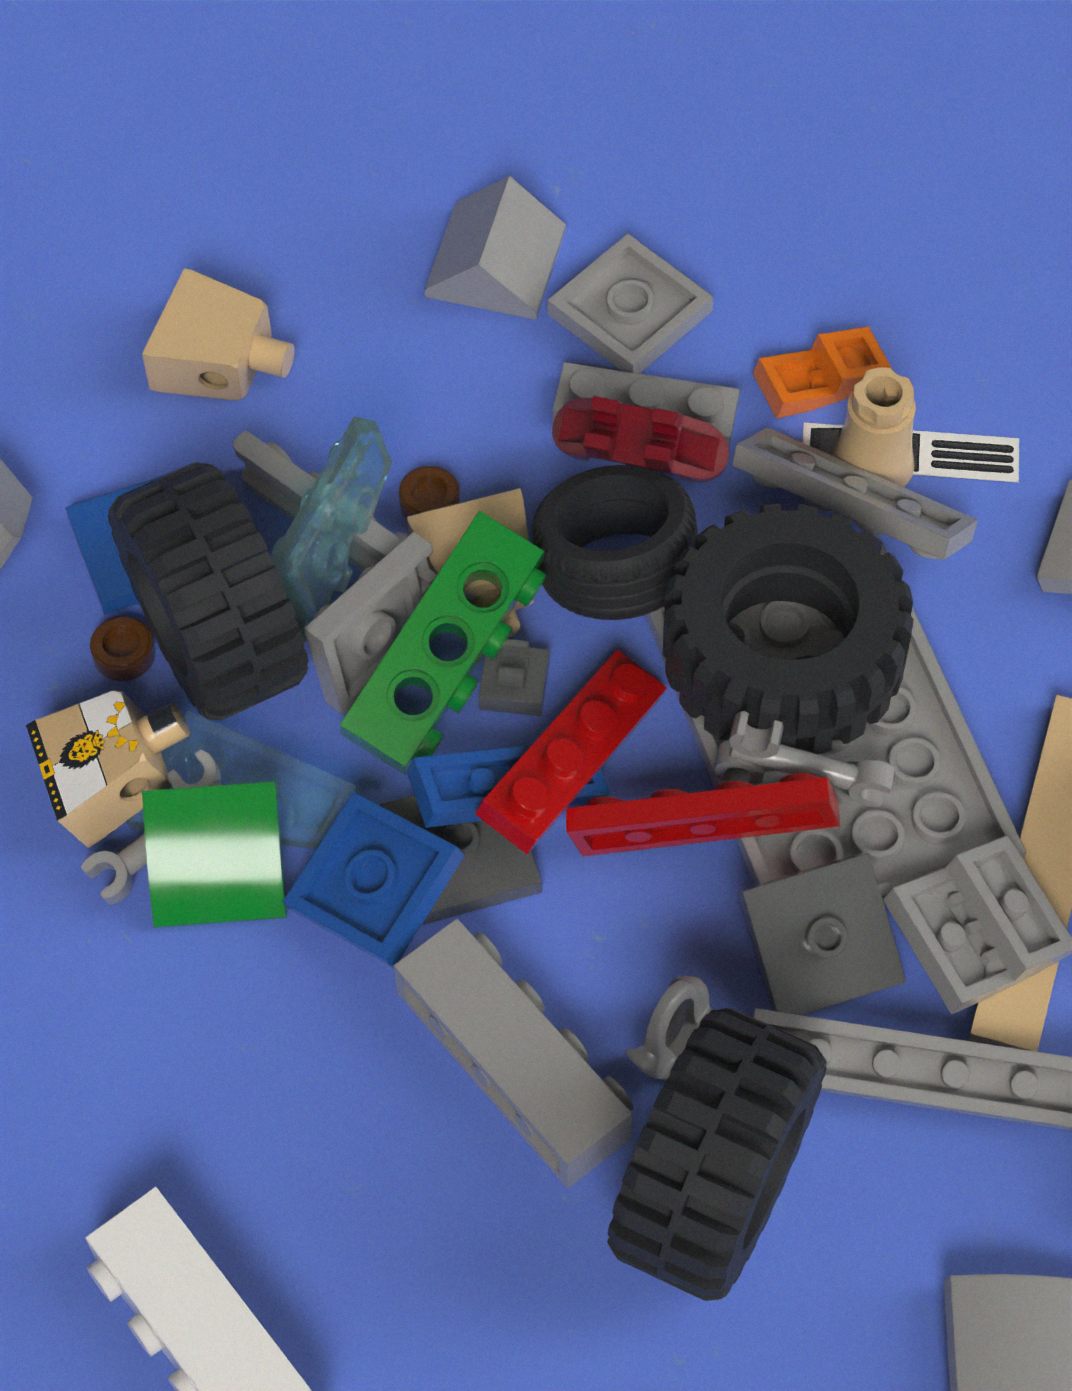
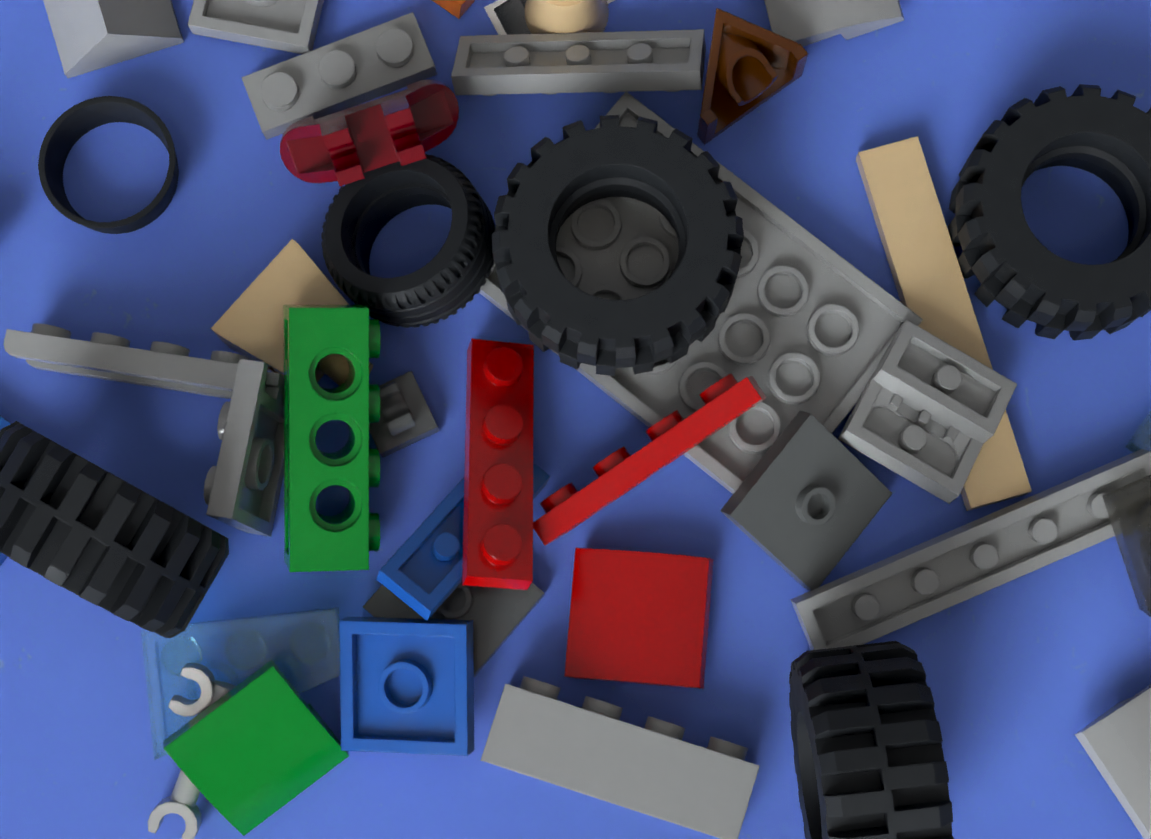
camera: 30 degrees left, 20 degrees up
(102, 759) = (102, 727): torso -> none
(122, 648) = (34, 599): reddish brown tile -> none
(341, 503) = (157, 368): clear light blue wing -> none
(404, 326) = (76, 123): none -> black tyre
(427, 490) = (207, 281): reddish brown tile -> none
(610, 950) = (639, 617): none -> red slope
(671, 1026) = (748, 660): light grey piece -> none
(761, 748) = (673, 369): light grey bar -> none
(991, 573) = (744, 71): none -> reddish brown slope

